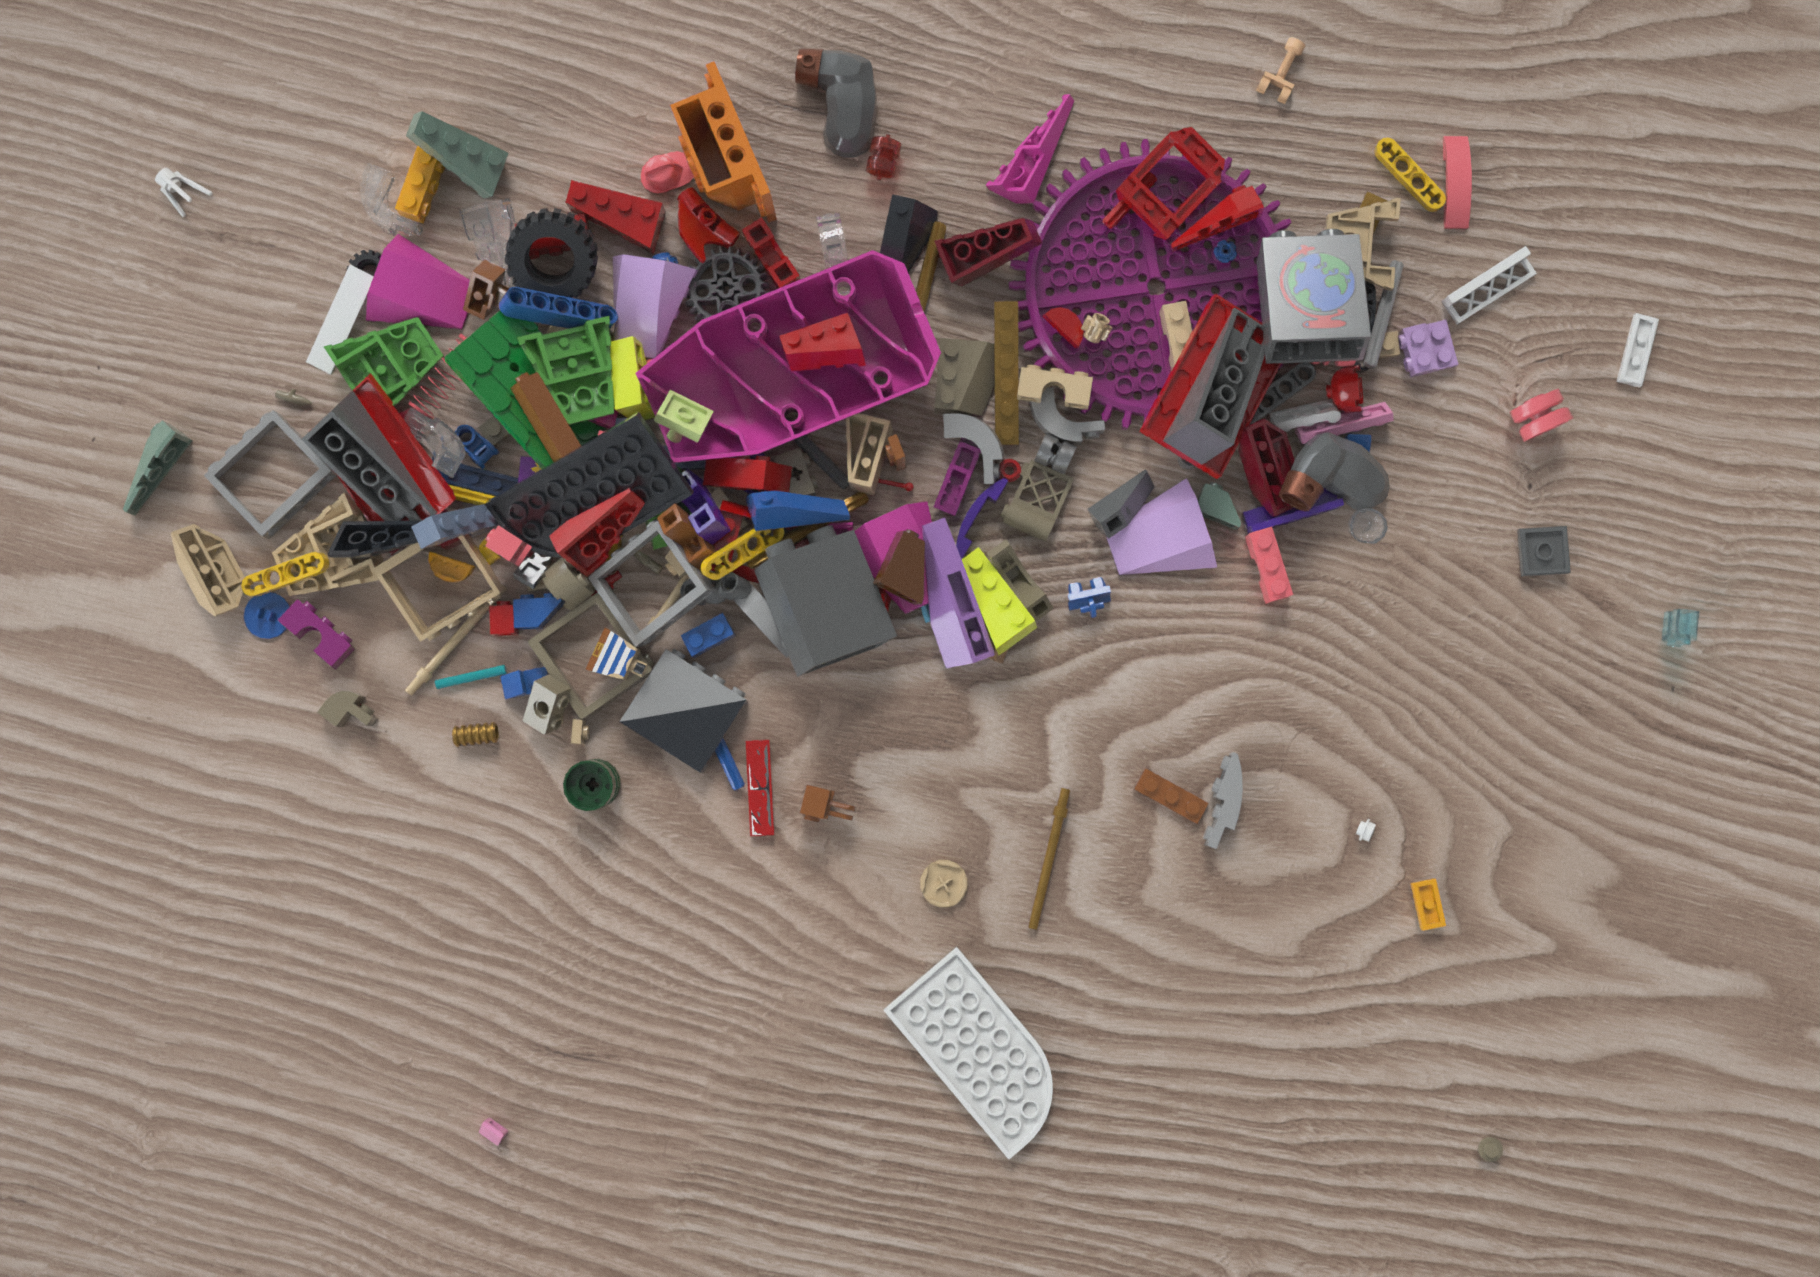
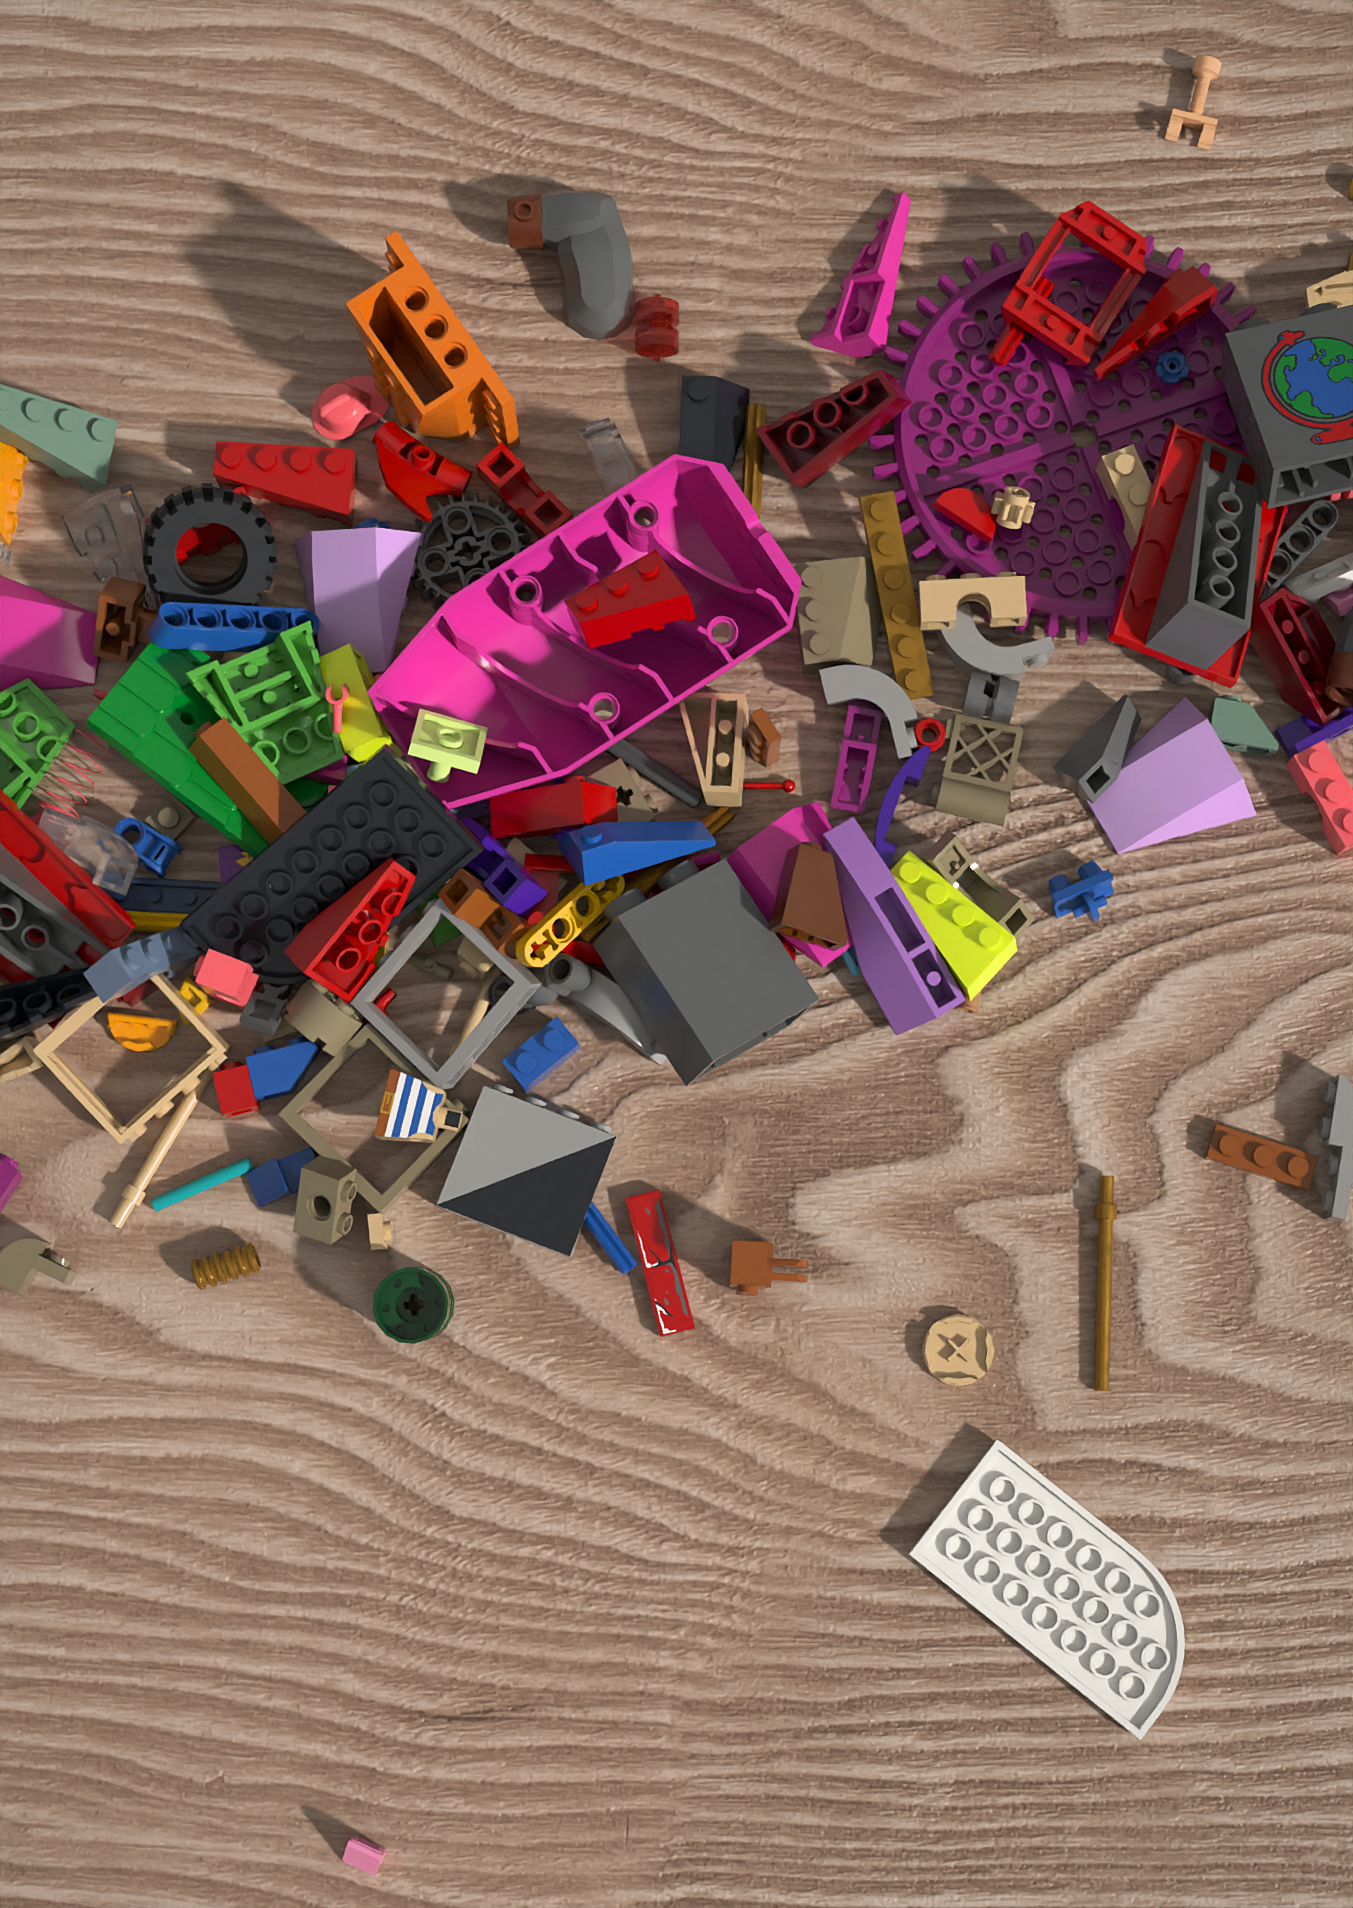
camera: 15 degrees left, 5 degrees down
(615, 377) = (337, 706): none -> coral hand

